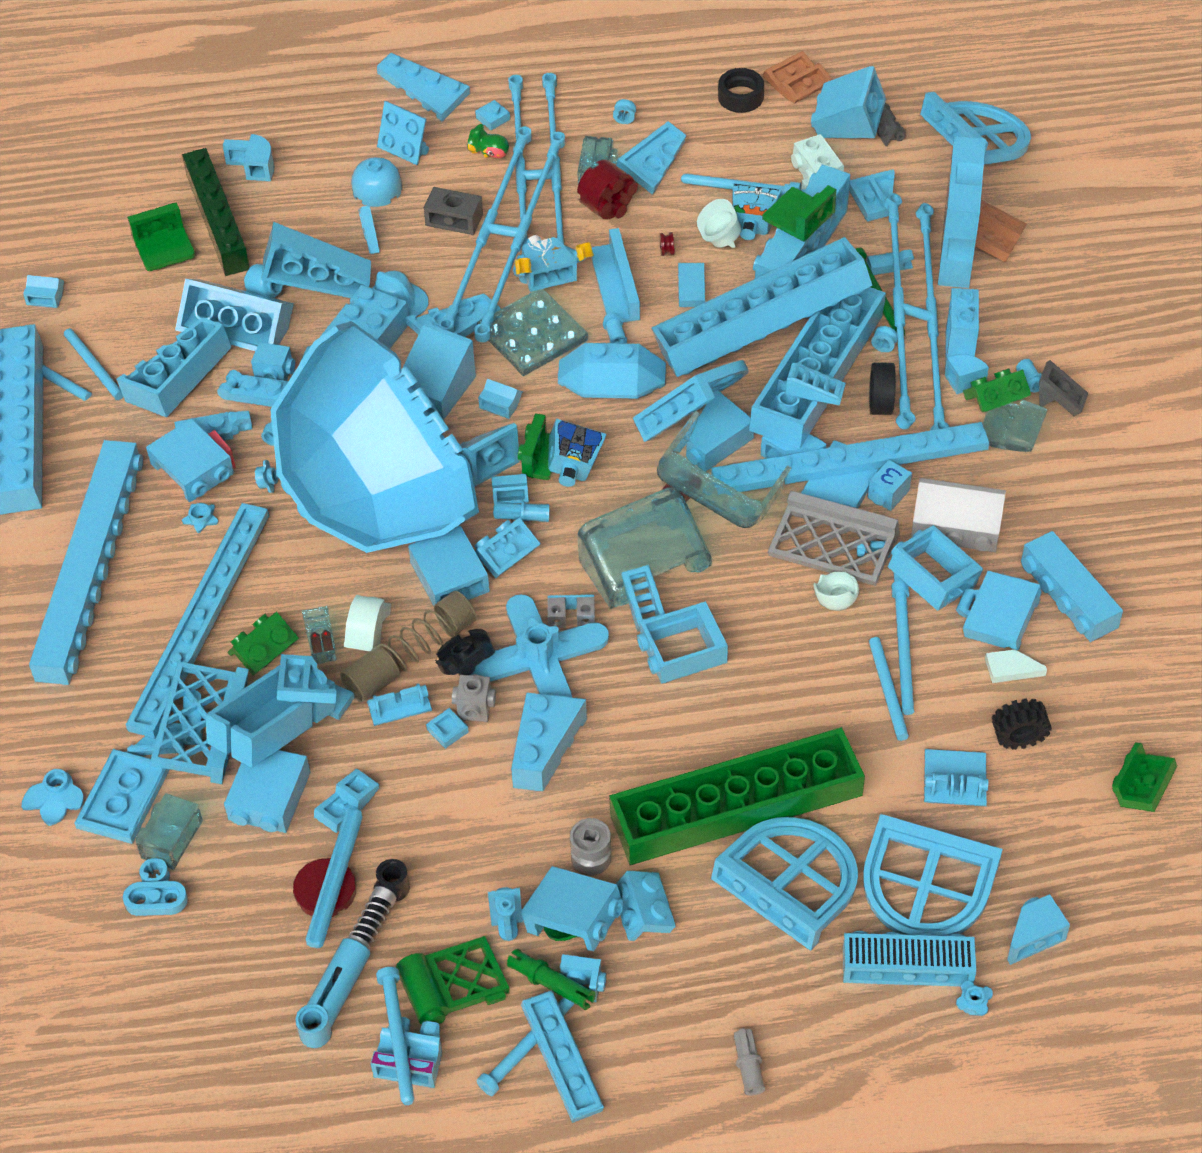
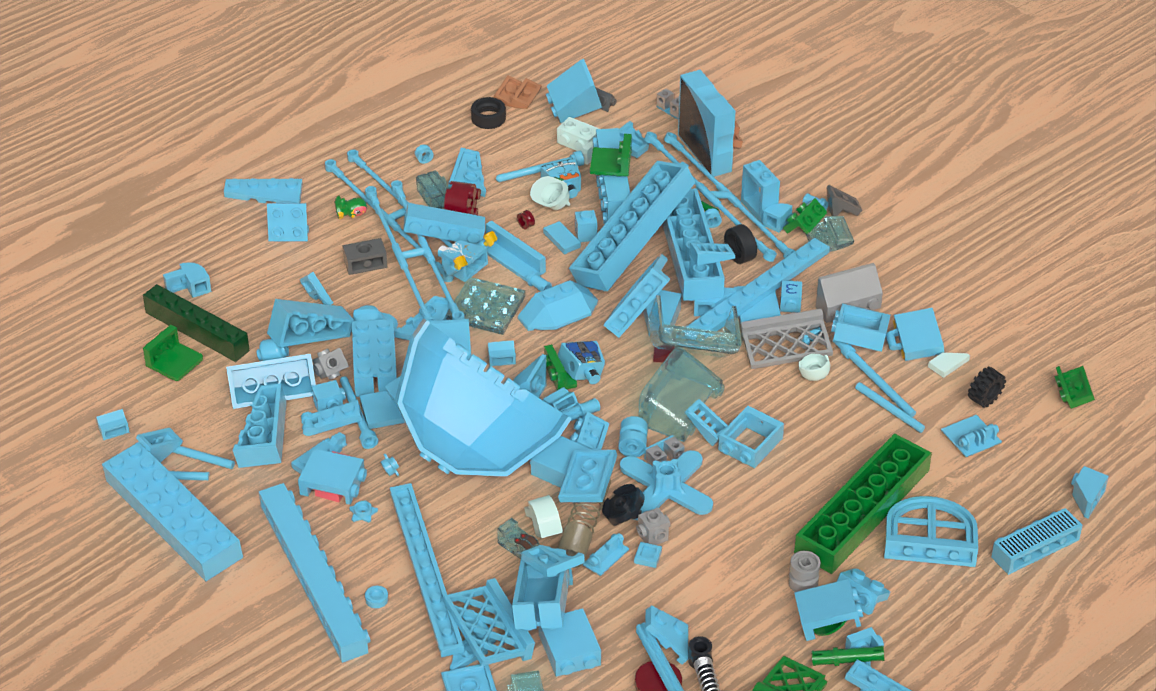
camera: 35 degrees left, 10 degrees down
(59, 335) = (160, 442): none -> medium azure slope
(128, 624) = (376, 596): none -> medium azure tile
(264, 643) = (482, 561): green bracket -> none
(314, 323) = (329, 363): none -> light grey brick
(350, 792) = (624, 626): medium azure slope -> none
(376, 182) = (292, 260): medium azure cylinder -> none
(377, 834) = (669, 631): none -> medium azure wing
(443, 598) = (587, 476): none -> medium azure tile
(492, 115) = (332, 190): medium azure plate -> none
(505, 911) = (790, 631): medium azure hinge -> none
(543, 737) = (717, 528): medium azure wedge -> none
(548, 574) = (633, 436): none -> medium azure wheel
(559, 209) = (443, 224): none -> medium azure brick
(724, 278) = (585, 225): none -> medium azure brick
(749, 1062) = (999, 640): light grey axle -> none
(937, 844) = (1001, 473): medium azure window -> none
(948, 123) = (646, 79): medium azure window -> none
(970, 1006) = (1088, 544): medium azure plate -> none
(1071, 586) = (946, 303): medium azure brick -> none

